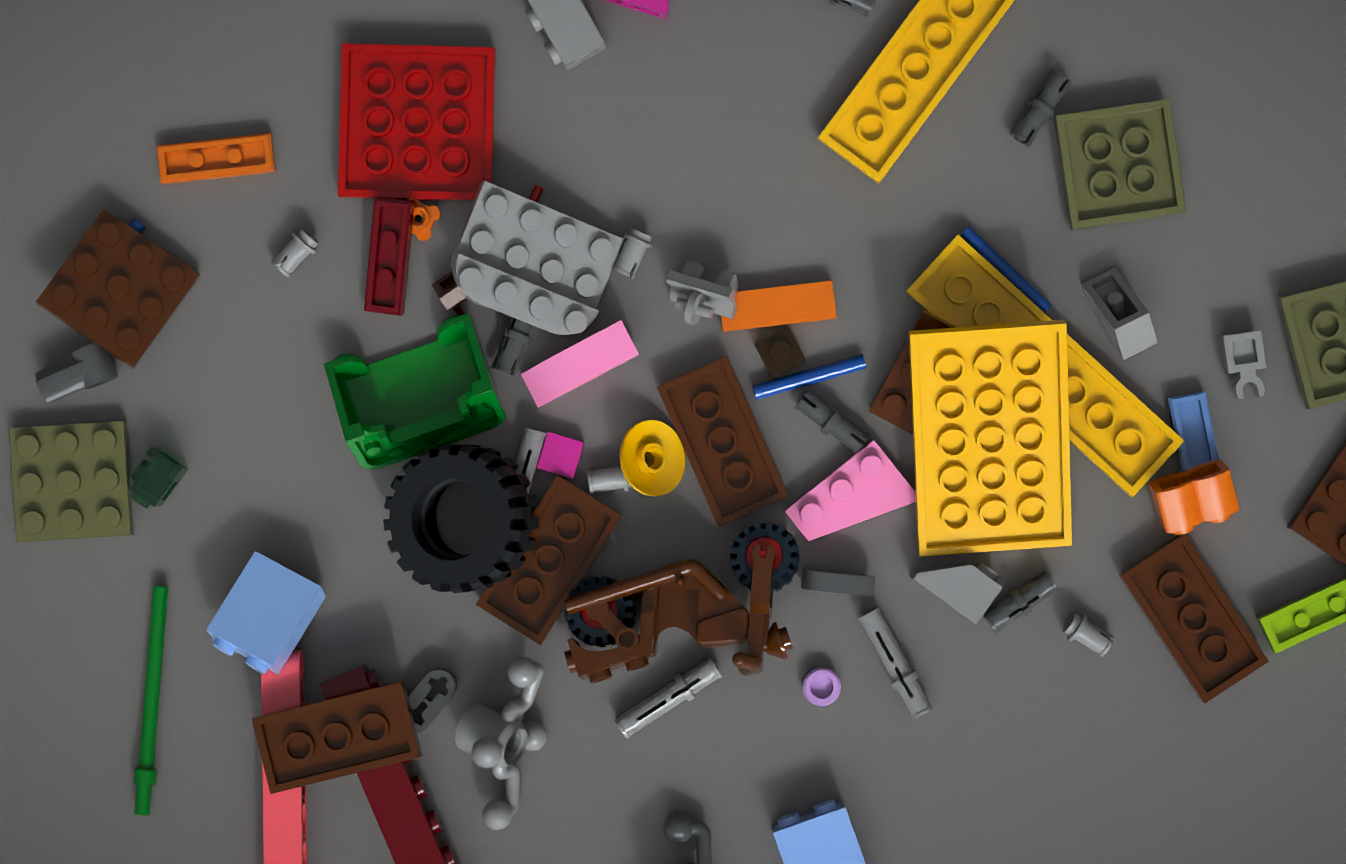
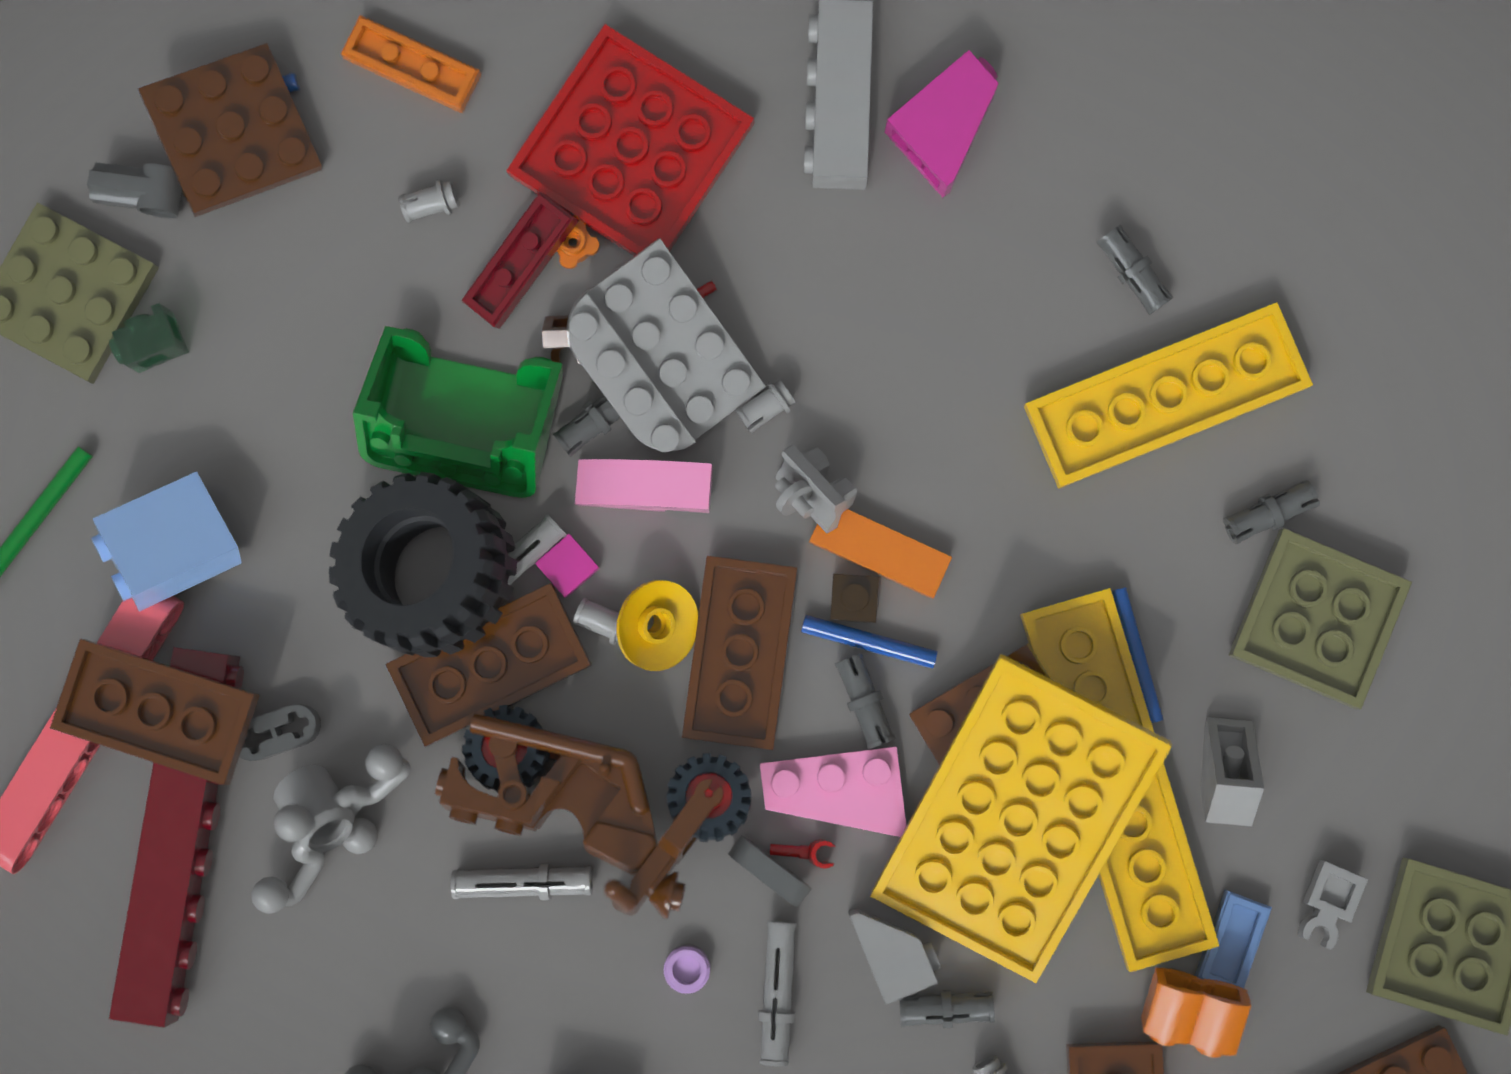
camera: 40 degrees right, 5 degrees down
(853, 554) = (803, 852): none -> red hand

